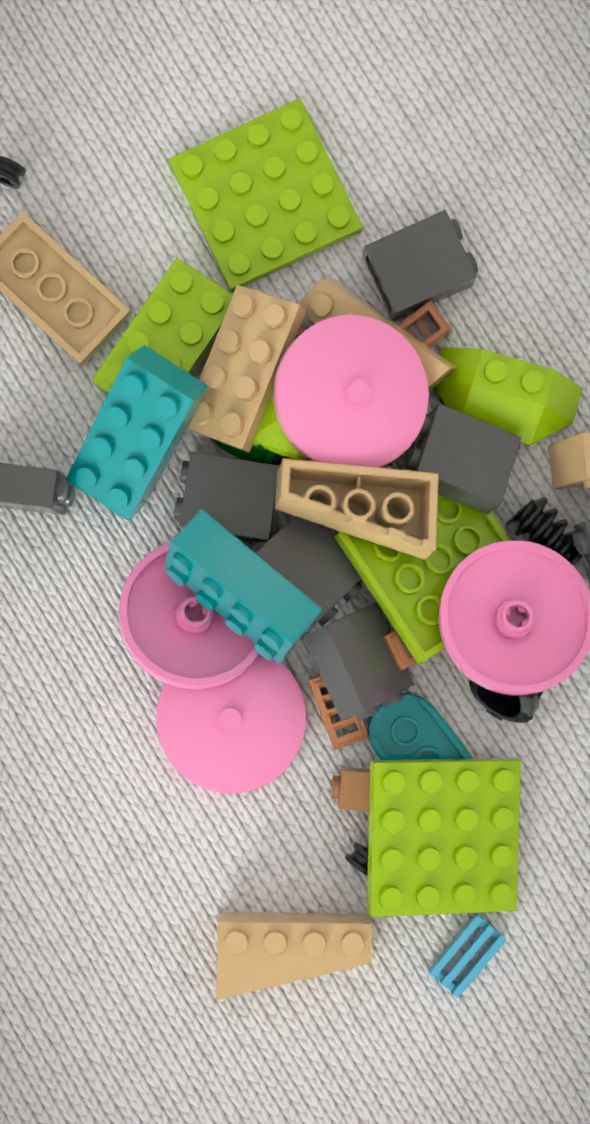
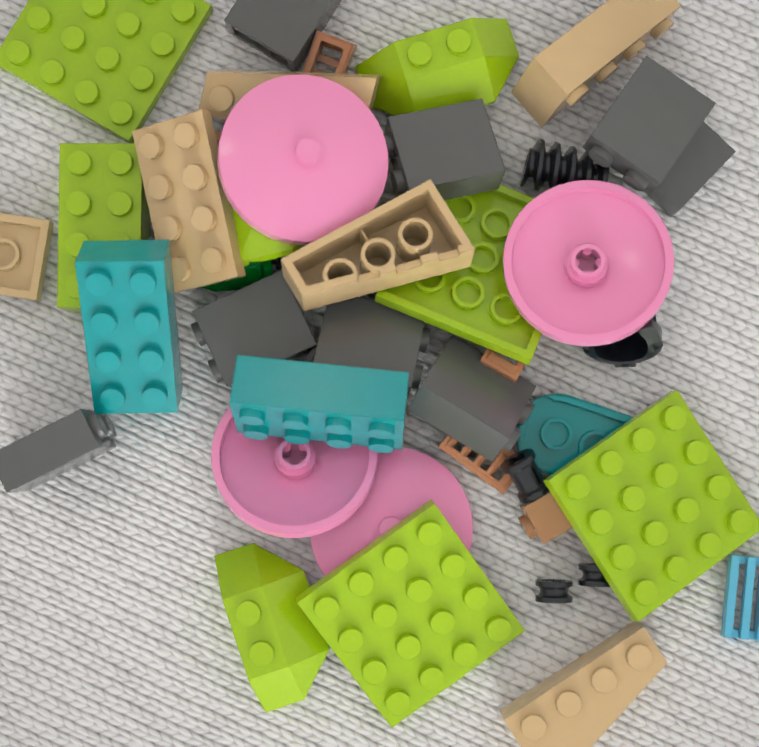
camera: 30 degrees left, 0 degrees up
(92, 728) = (269, 627): none -> lime wedge
(201, 792) = (410, 613): none -> lime plate
(322, 849) = (553, 591): none -> black bush
(360, 747) = (525, 475): none -> black bush

